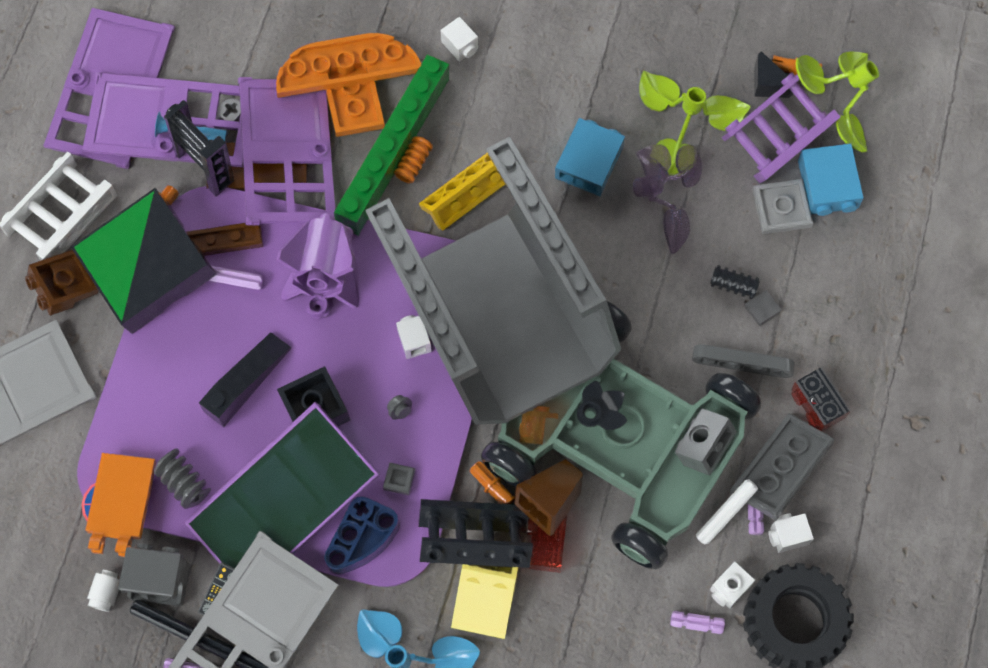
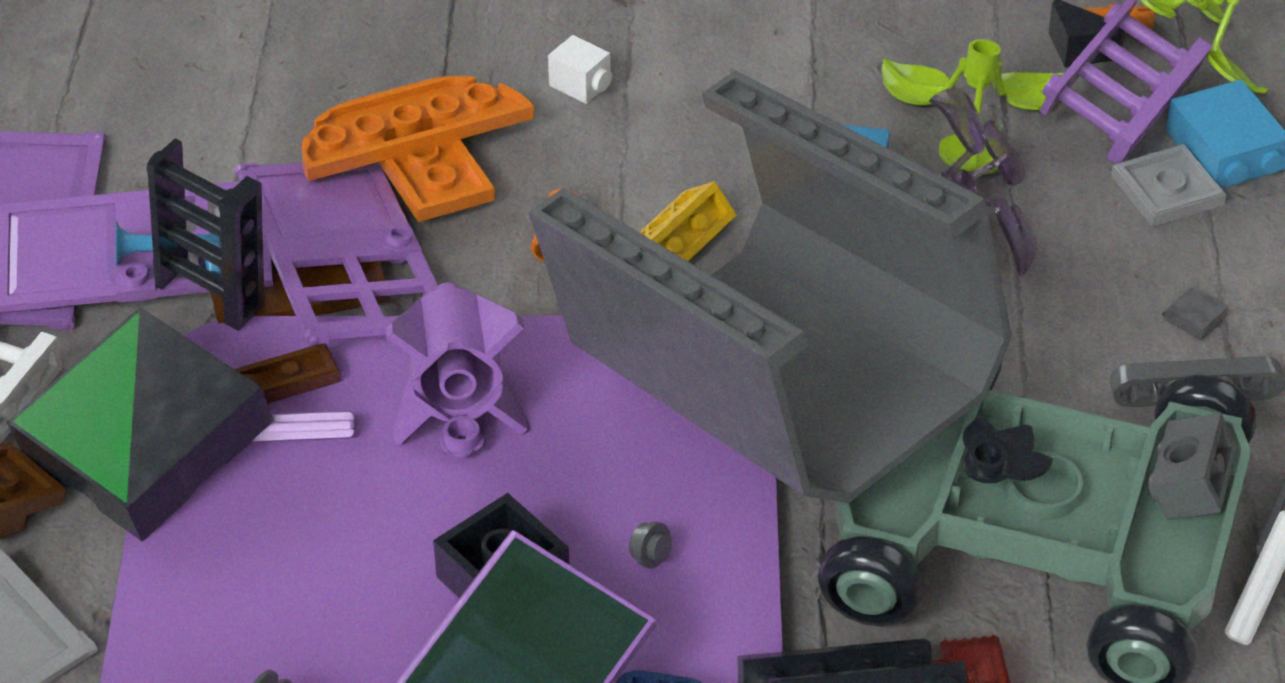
camera: 15 degrees left, 25 degrees down
(243, 379) = (358, 565): black slope -> none
(392, 143) = (526, 181): green brick -> none
(399, 479) = (684, 650): dark grey tile -> none
(413, 336) = (642, 443): white brick -> none
(491, 483) = (840, 626): orange axle -> none
(533, 425) = (897, 499): clear orange bracket -> none
(550, 495) = (956, 608): reddish brown slope -> none
(735, 282) = (1138, 285): black piece -> none

